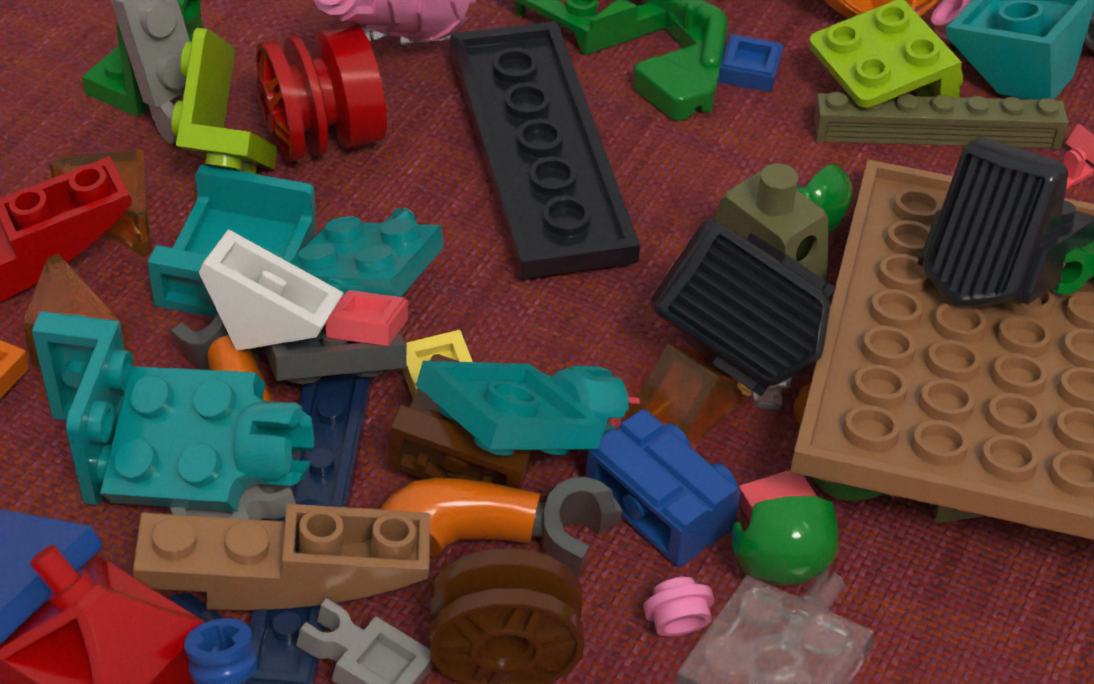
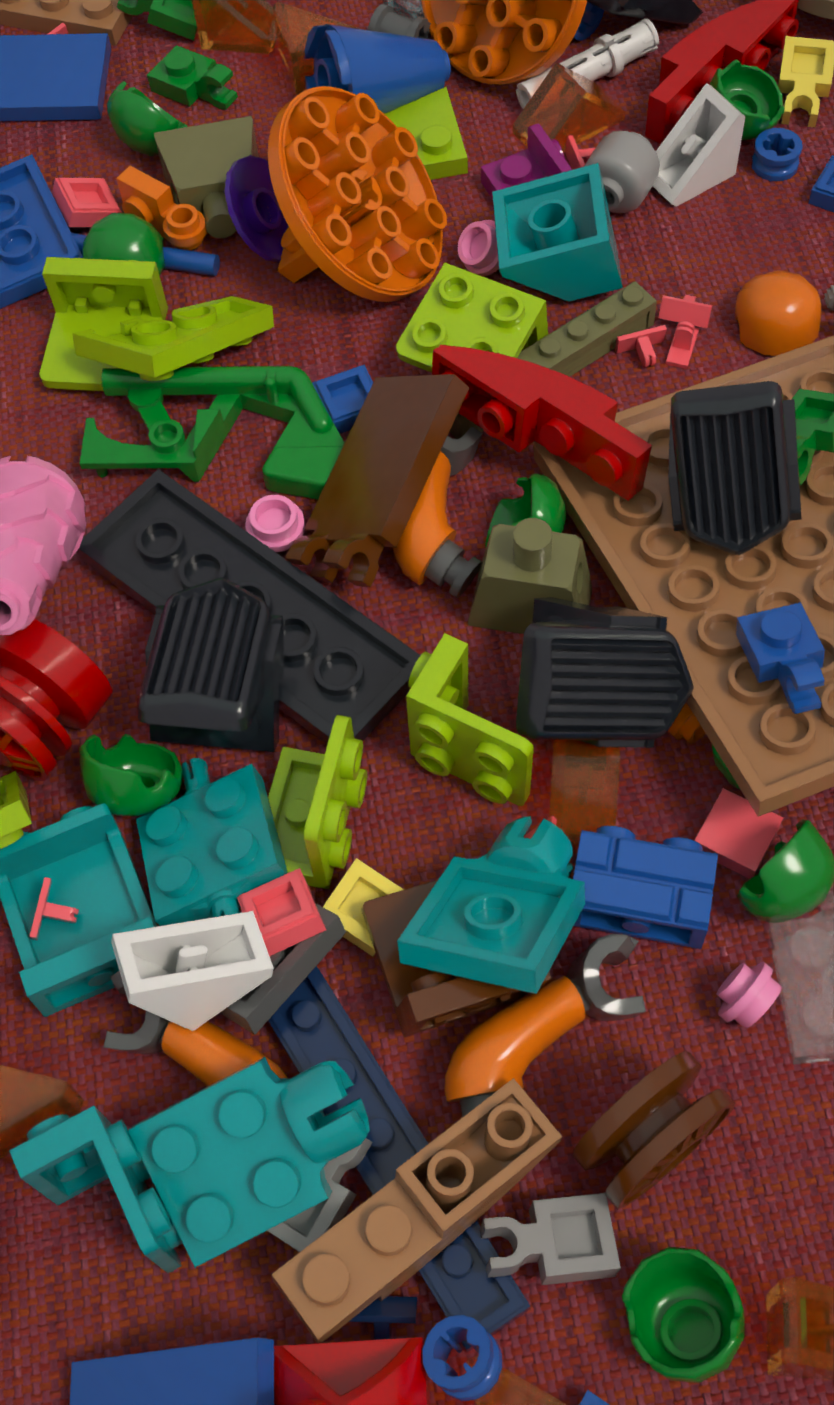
camera: 30 degrees left, 15 degrees up
(212, 231) = (50, 910): none -> coral piece
(347, 190) = (130, 775): none -> green hair
(466, 152) = (214, 669): none -> black piece
(468, 273) = (313, 802): none -> lime bracket
(614, 104) = (275, 522): none -> bright pink plate
(617, 286) = (456, 741): none -> lime bracket
(712, 104) = (379, 475): none -> reddish brown tile
(724, 154) = (427, 541): none -> piece
(883, 121) = (534, 403): none -> red slope
(918, 370) = (785, 647): none -> blue plate
(1036, 146) = (642, 342): none -> coral piece

